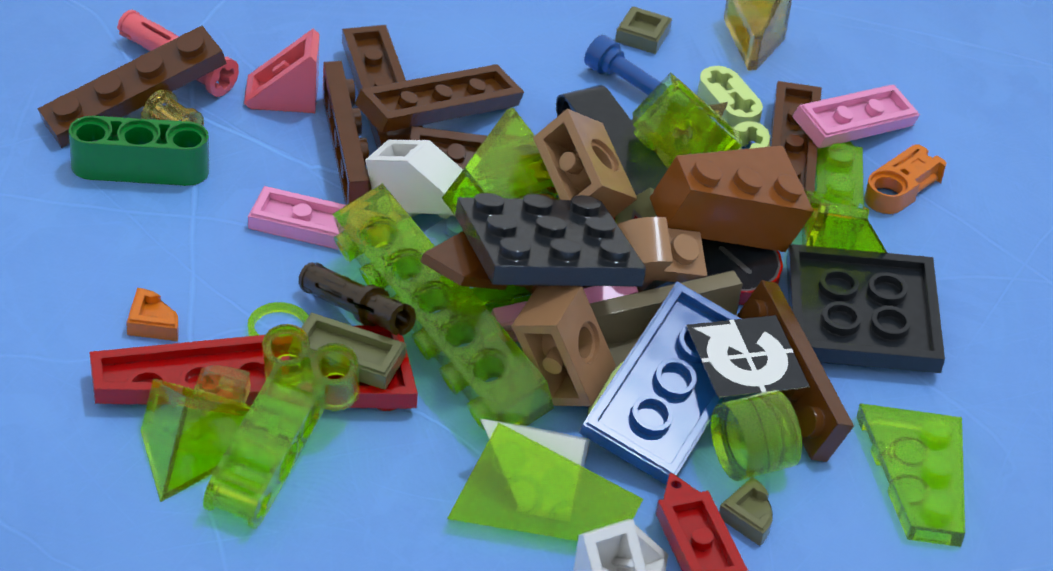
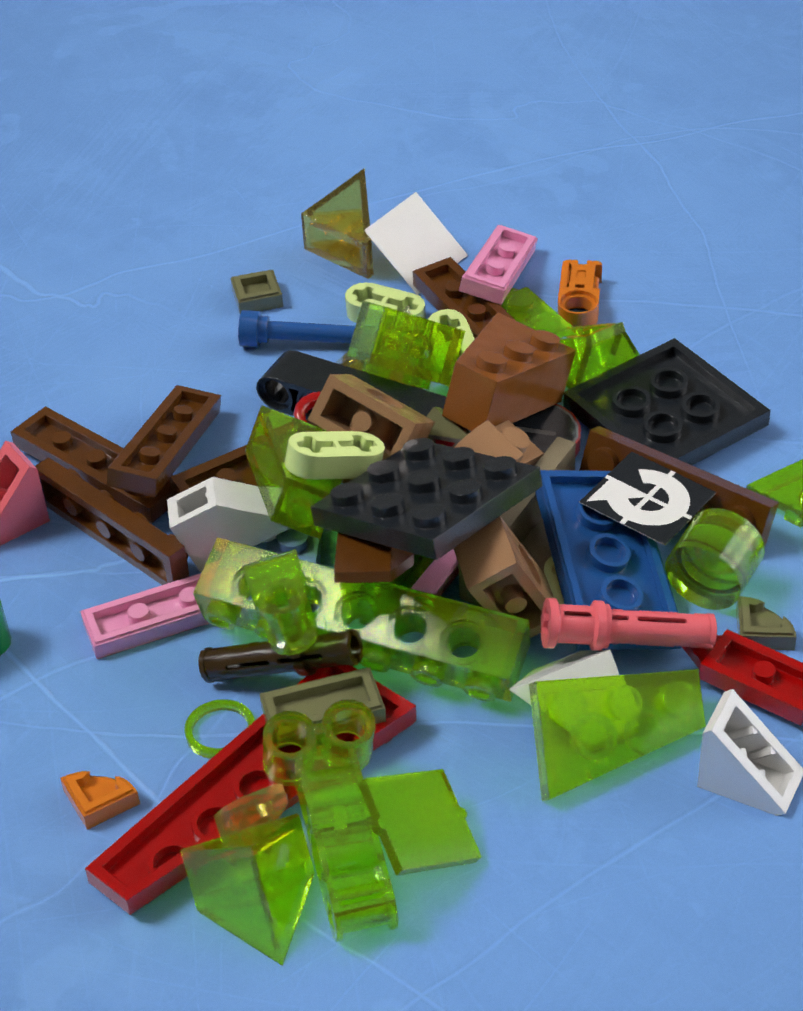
camera: 30 degrees left, 0 degrees up
(330, 466) = (419, 821): none -> clear neon green piece
(377, 253) = (283, 602): none -> clear neon green piece
(517, 170) = (332, 454): none -> yellowish green beam
(597, 420) = (601, 626): none -> coral pin
(806, 54) = (413, 238): none -> white sticker

